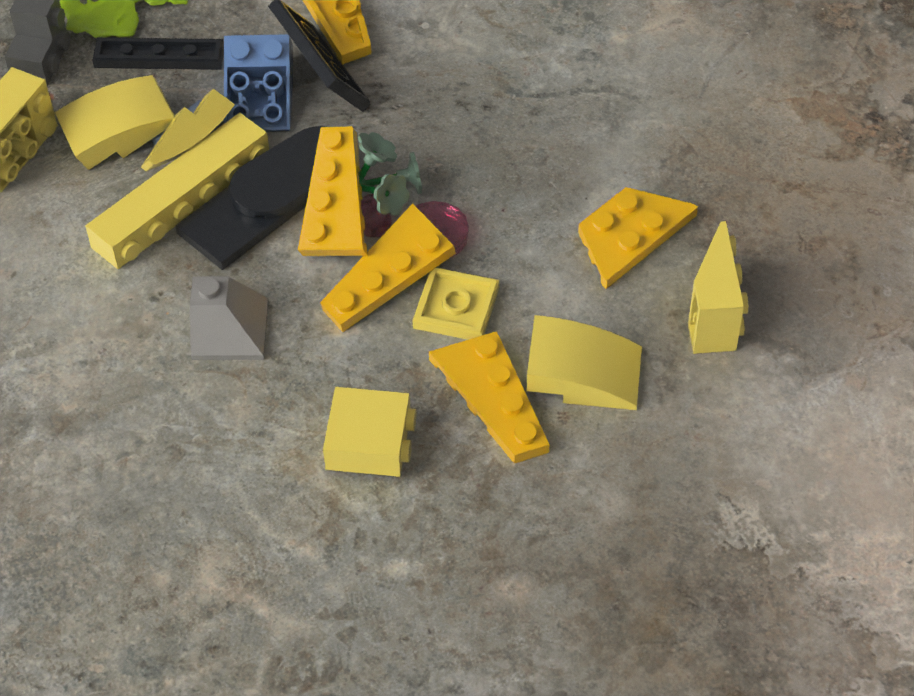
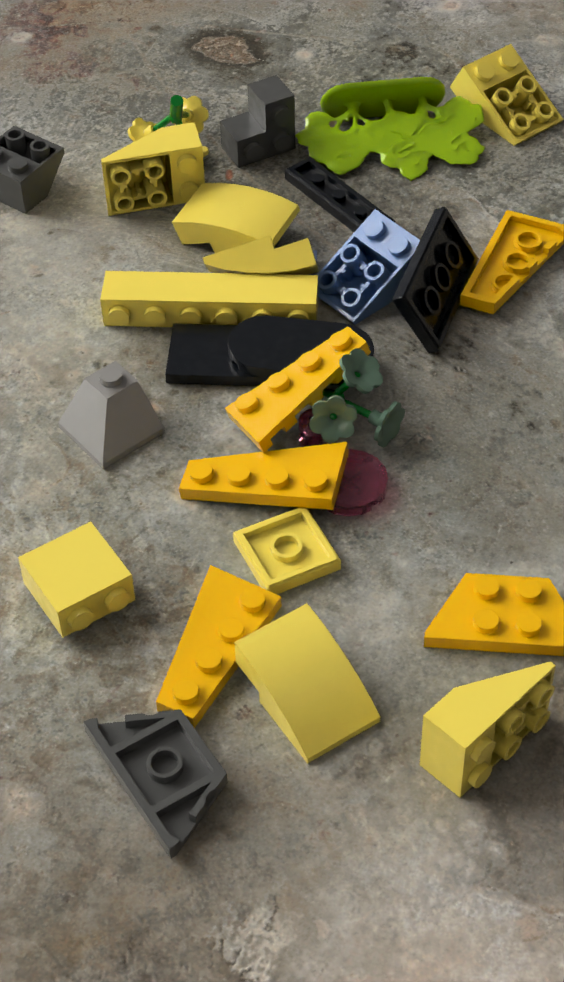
camera: 50 degrees right, 5 degrees down
(572, 487) = (162, 770): none -> dark grey wing

